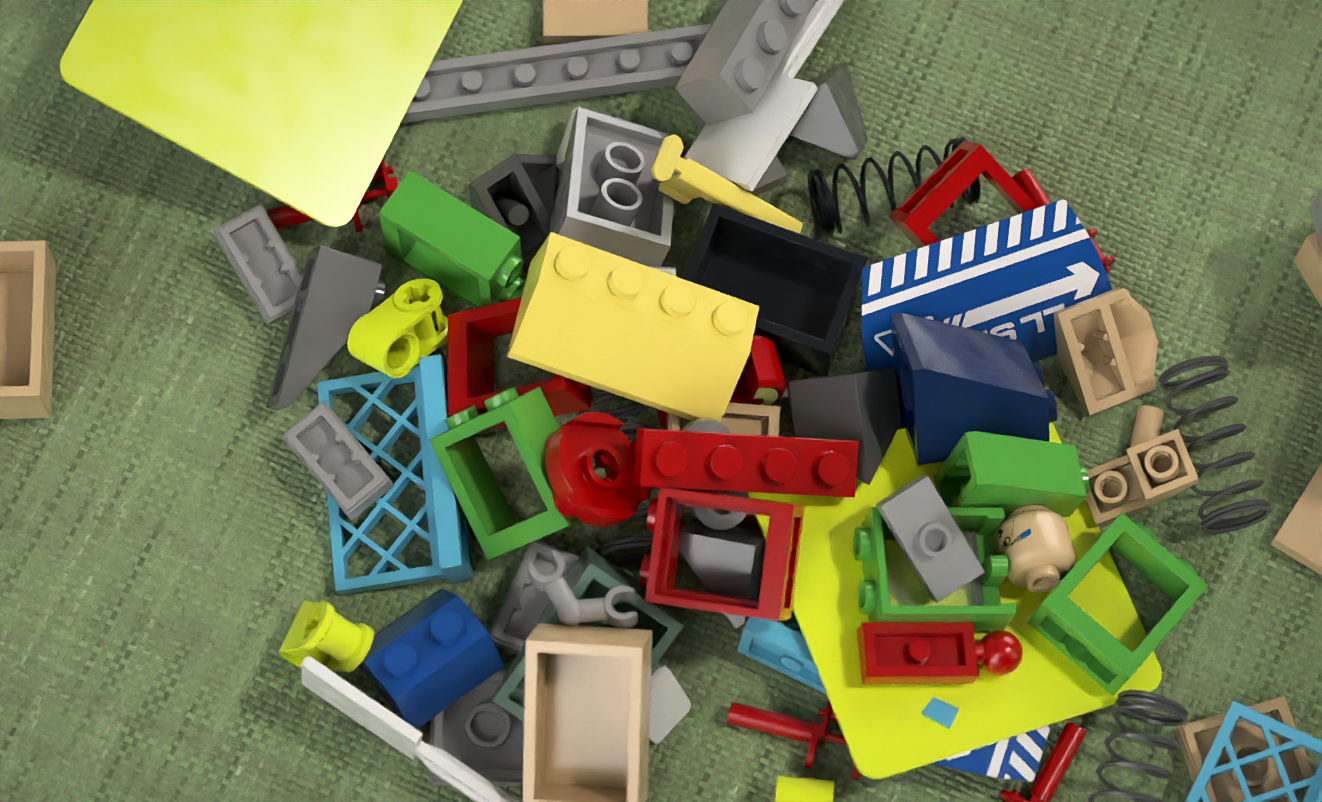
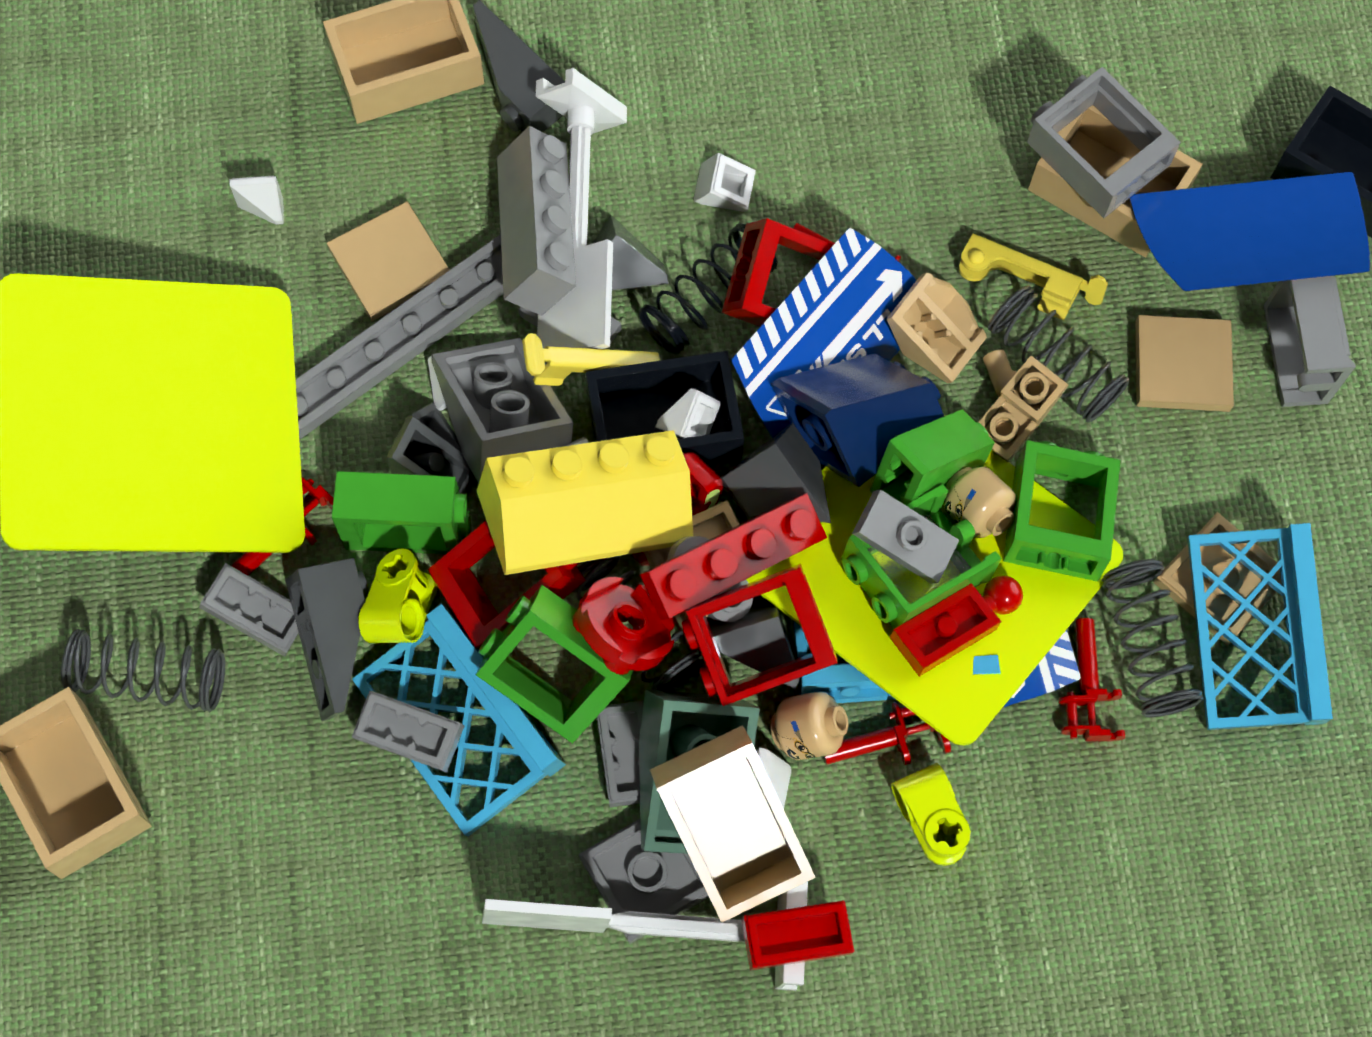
camera: 30 degrees left, 0 degrees up
(199, 300) = (214, 662): none -> dark grey piece
(326, 638) = (482, 876): neon yellow piece -> none
(430, 658) = (571, 844): blue slope -> none
(584, 610) = (671, 744): light grey arm -> none
(728, 673) = (809, 726): none -> tan head
(792, 303) = (690, 415): none -> white slope
(980, 90) = (724, 183): none -> white slope
(1261, 378) = (1059, 286): none -> light yellow piece

